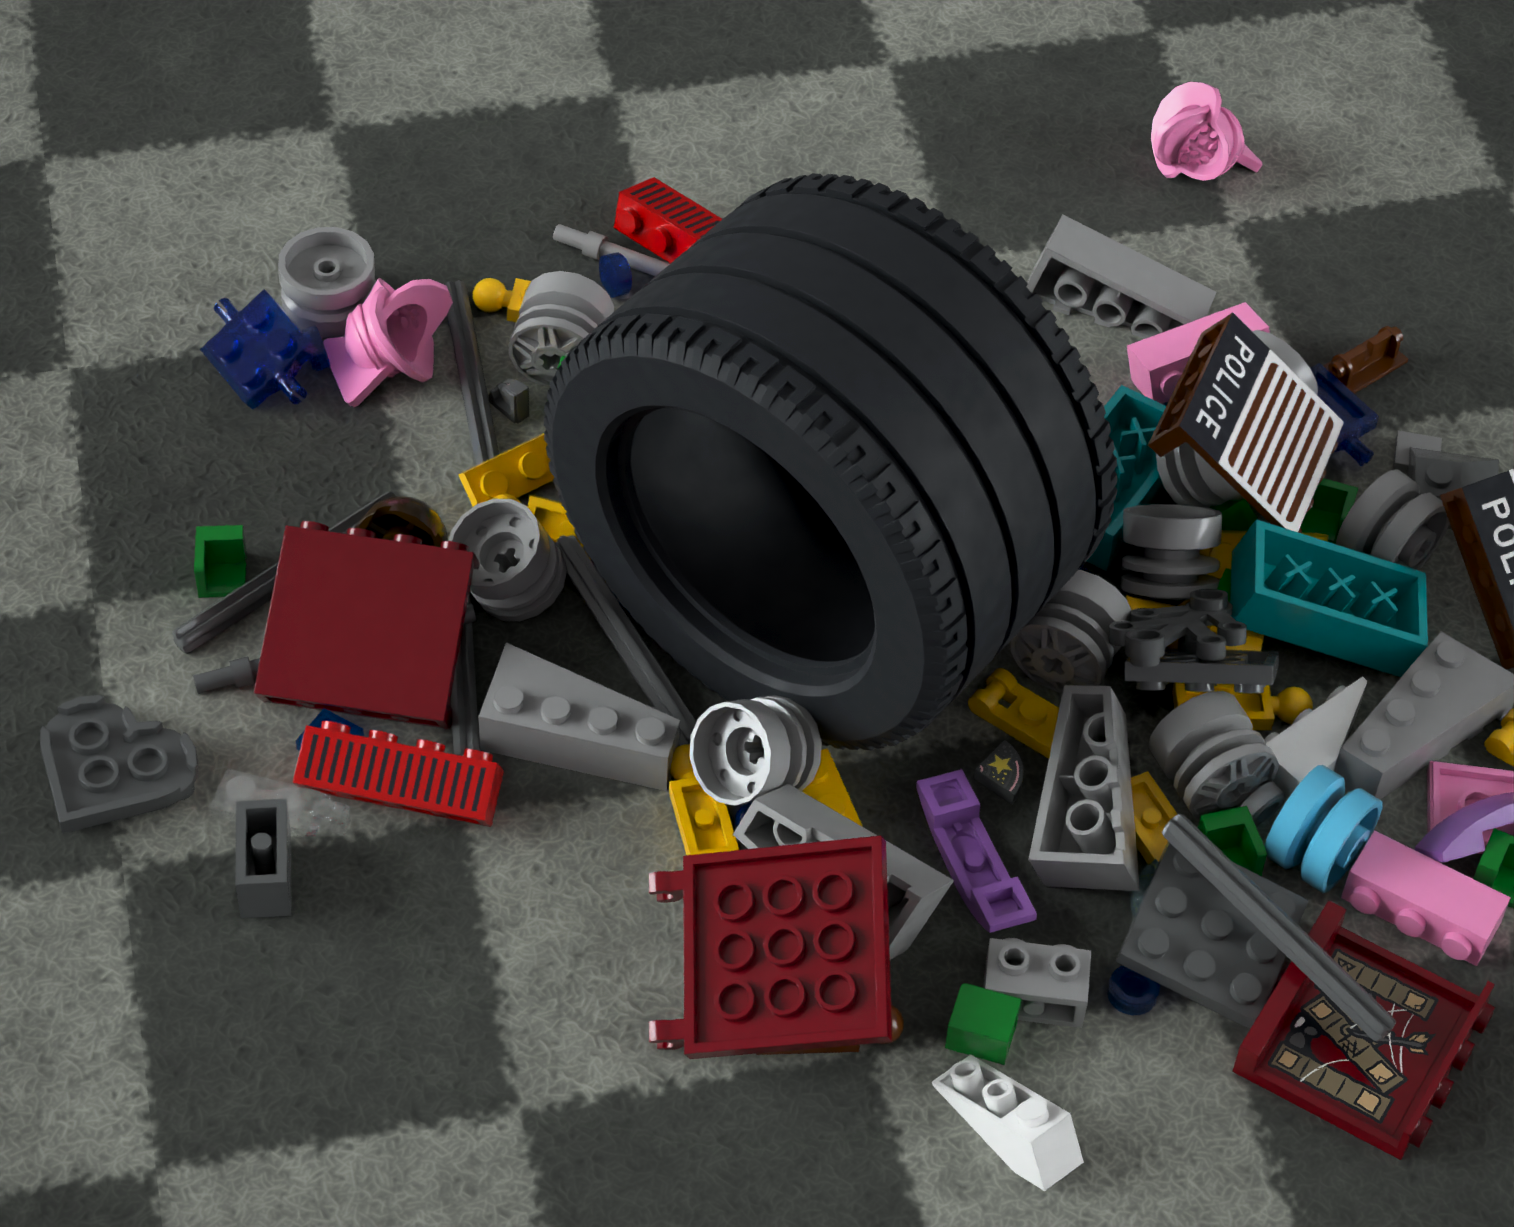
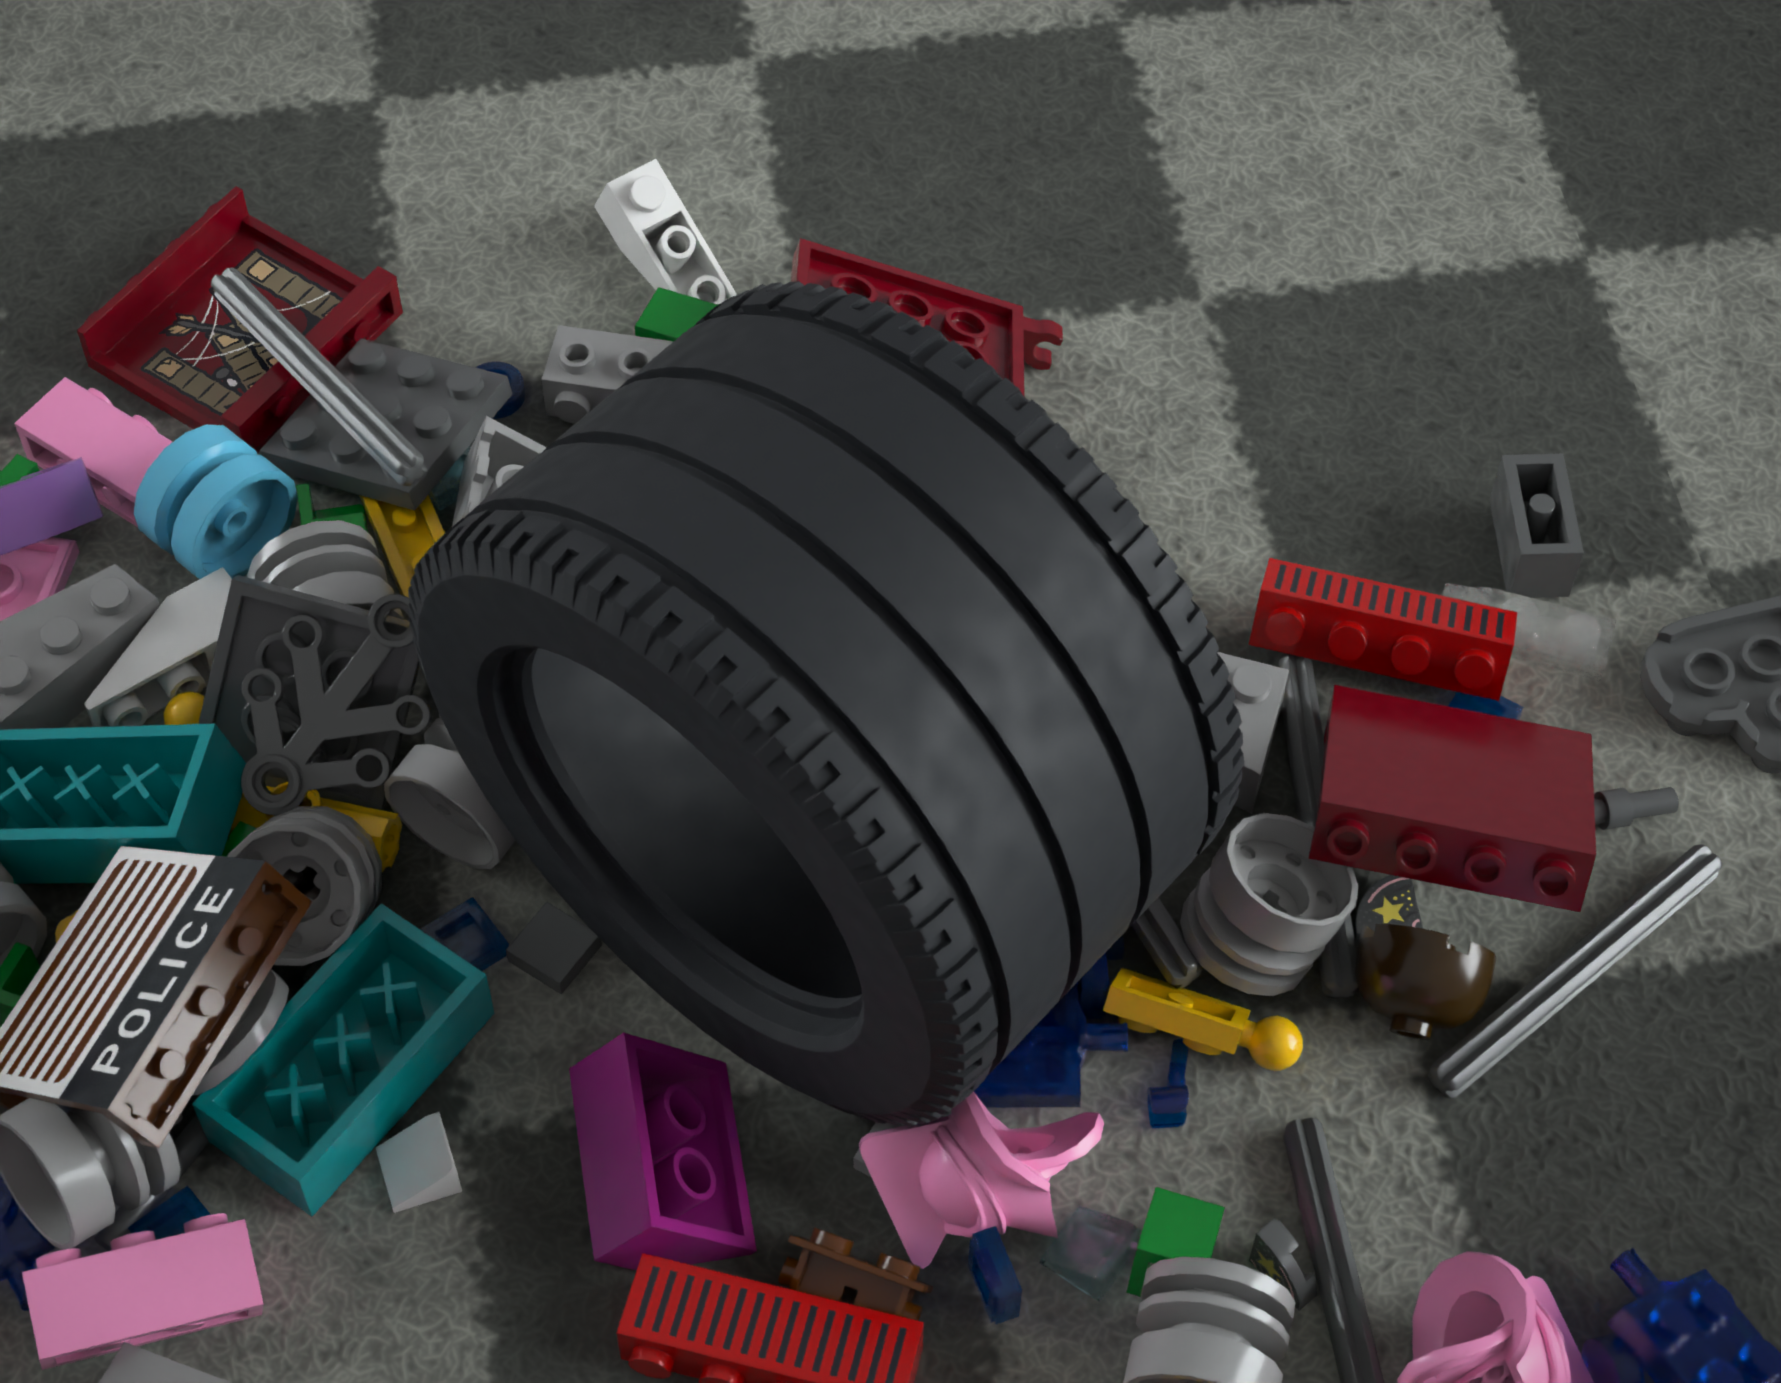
camera: 175 degrees left, 5 degrees up
(219, 560) = (1682, 975): green panel -> none
(510, 472) = (1244, 1125): yellow plate -> none

